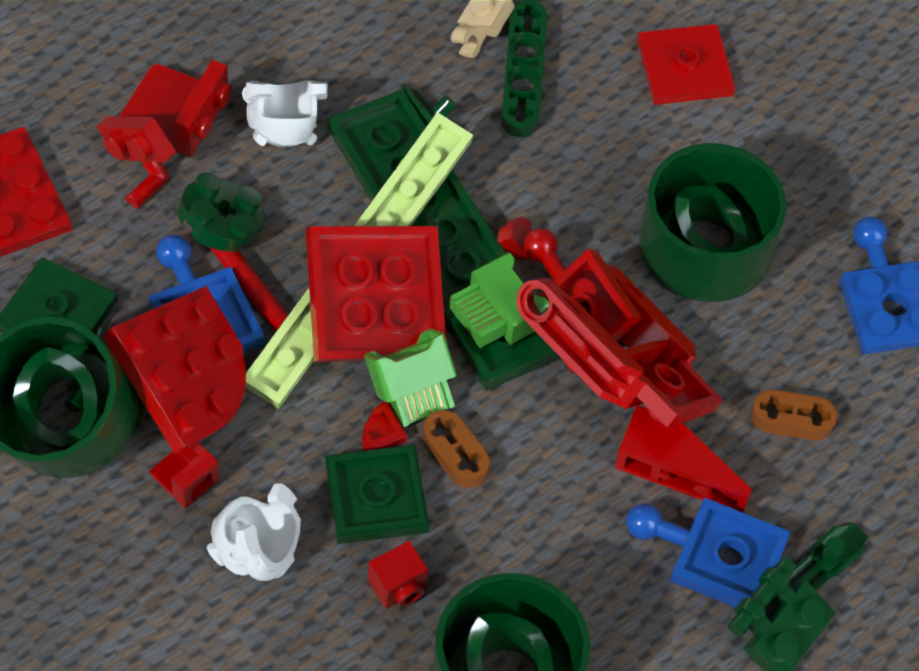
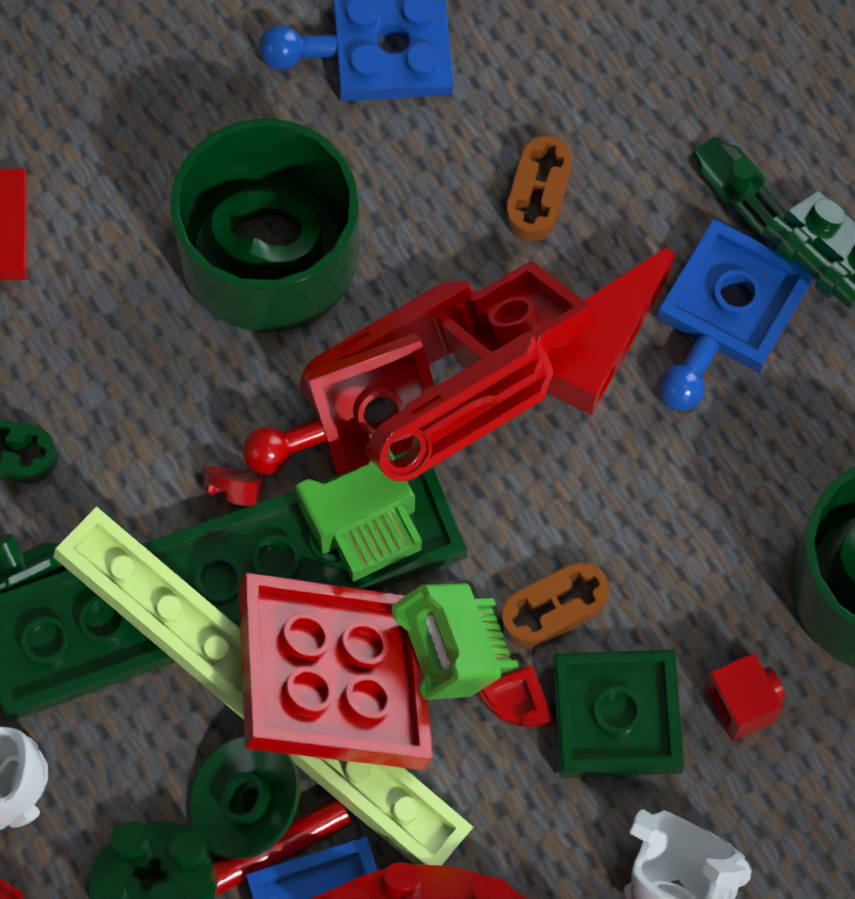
camera: 80 degrees left, 10 degrees up
(277, 261) = (223, 797): none -> dark green dish

